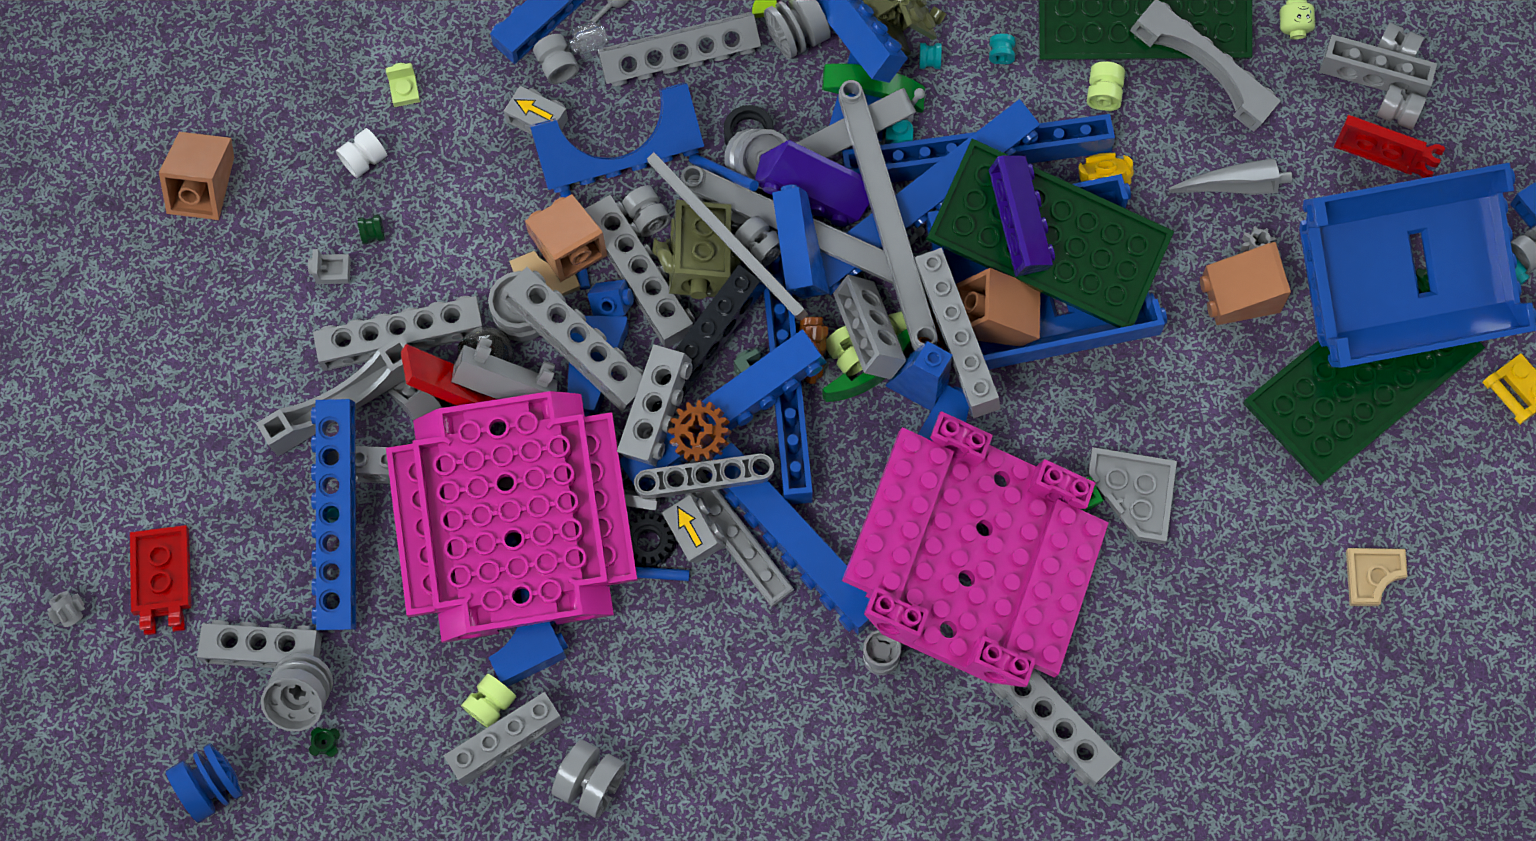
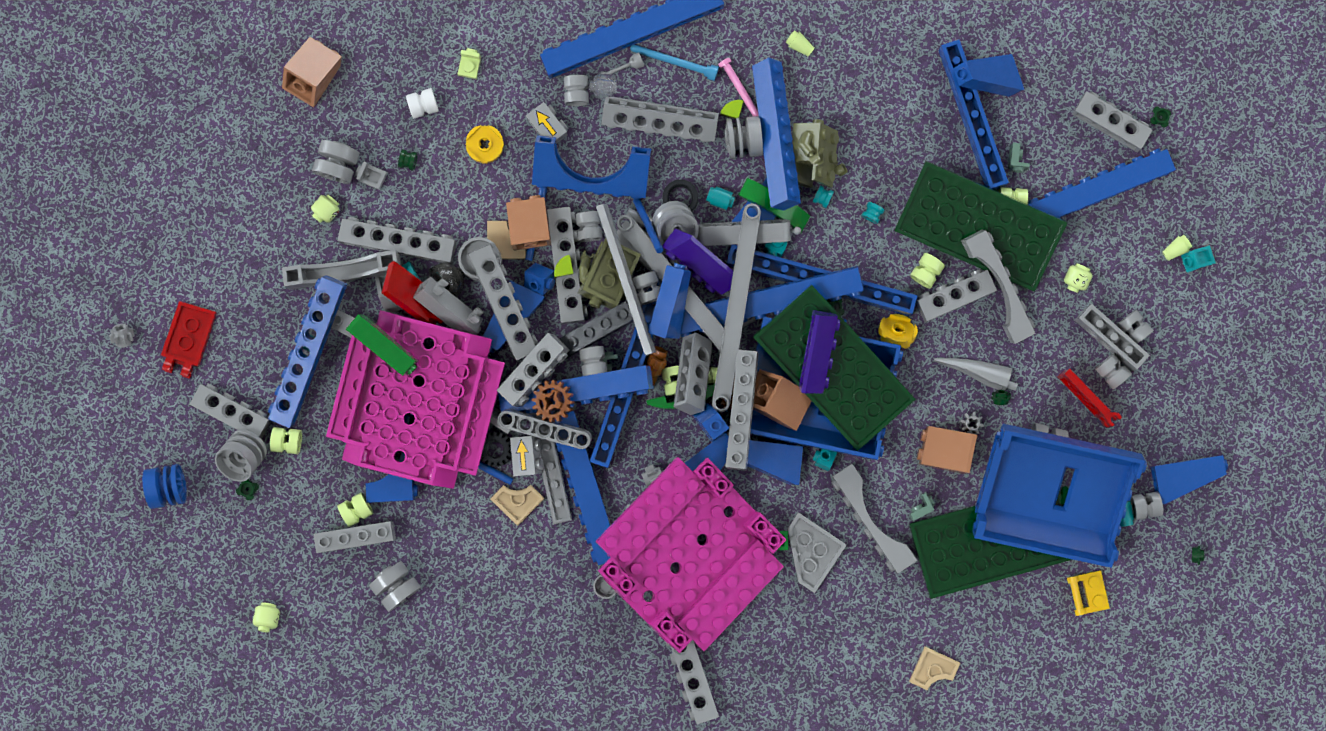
camera: 20 degrees right, 15 degrees up
(275, 262) = (337, 157): none -> light grey wheel
(285, 333) = (325, 209): none -> yellowish green head
(352, 650) = (279, 442): none -> yellowish green wheel
(435, 448) = (382, 344): none -> green slope
(459, 158) = (495, 144): none -> yellow plate
(637, 268) = (563, 267): none -> lime tile
(710, 600) = (517, 504): none -> tan tile
(726, 360) = (593, 360): none -> light grey wheel
(800, 109) = (720, 198): none -> teal brick
(870, 482) = (650, 474): none -> light grey gear
(1031, 393) = (776, 460): none -> blue slope
(1092, 365) = (824, 459): none -> teal plate
(1180, 70) = (984, 288): none -> light grey brick
(1244, 443) = (896, 553): none -> light grey arch
(1254, 371) = (919, 511): none -> sand green bracket
(1278, 197) = (1001, 397): none -> dark green plate

